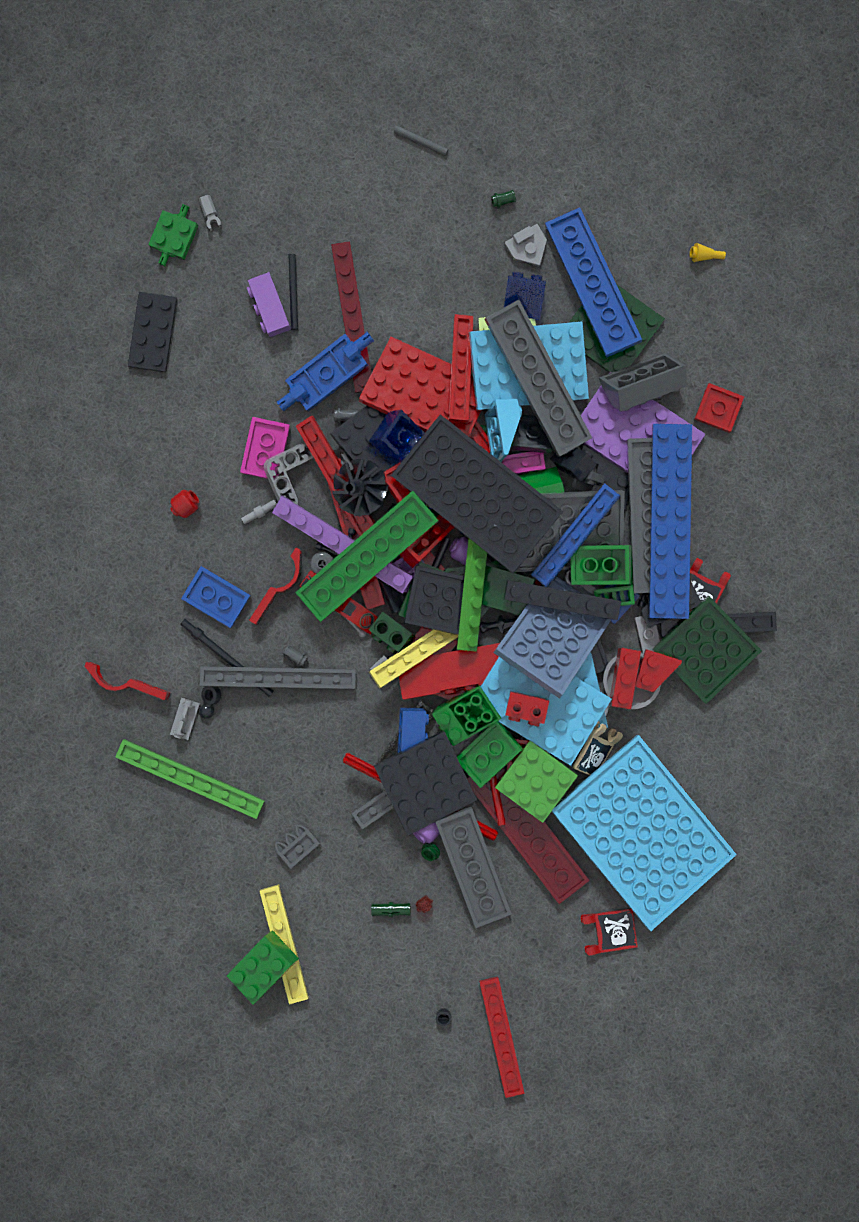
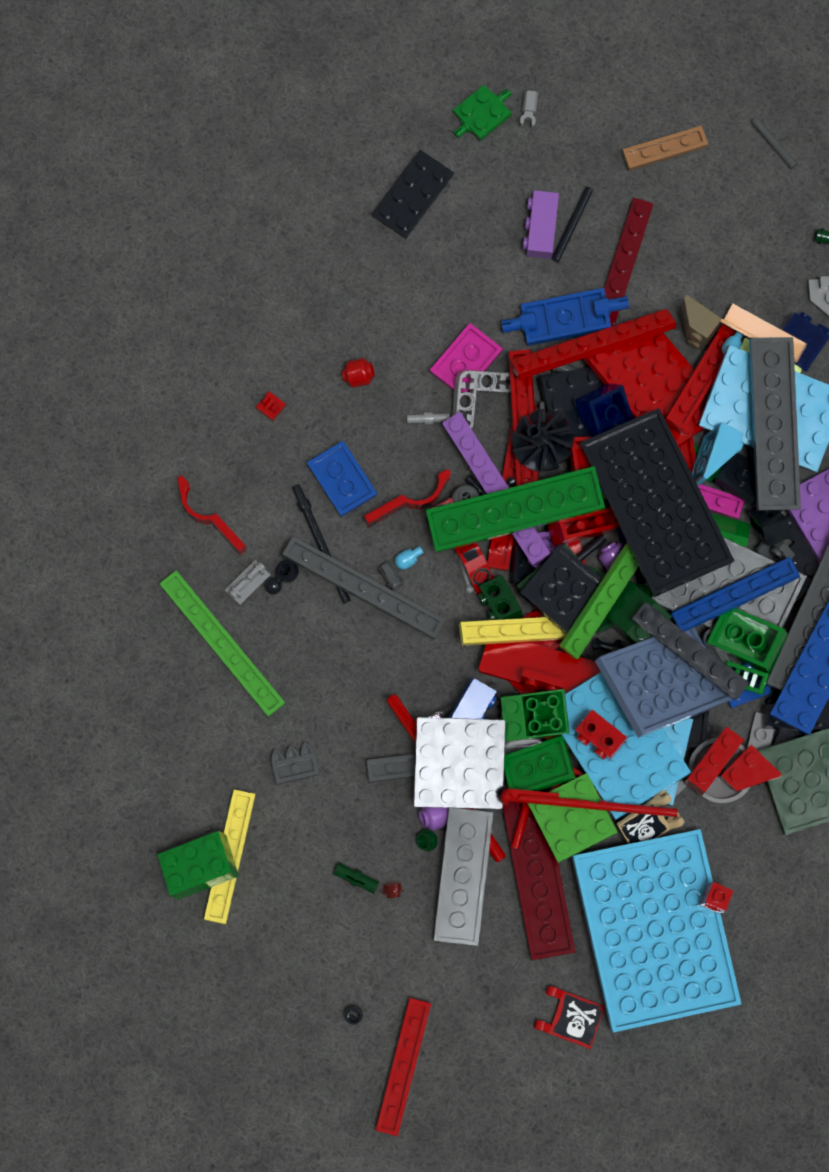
camera: 25 degrees right, 10 degrees down
(129, 566) = (270, 406): none -> red tile
(301, 634) = (408, 558): none -> medium azure cylinder
(335, 189) = (665, 148): none -> medium nougat plate
(359, 386) = (593, 344): none -> red plate
(434, 324) = (698, 323): none -> dark tan slope
(470, 326) = (733, 341): none -> medium azure cylinder
(485, 304) = (758, 328): none -> light nougat panel
(513, 777) = (547, 798): none -> red bar
(678, 785) = (716, 897): none -> red brick

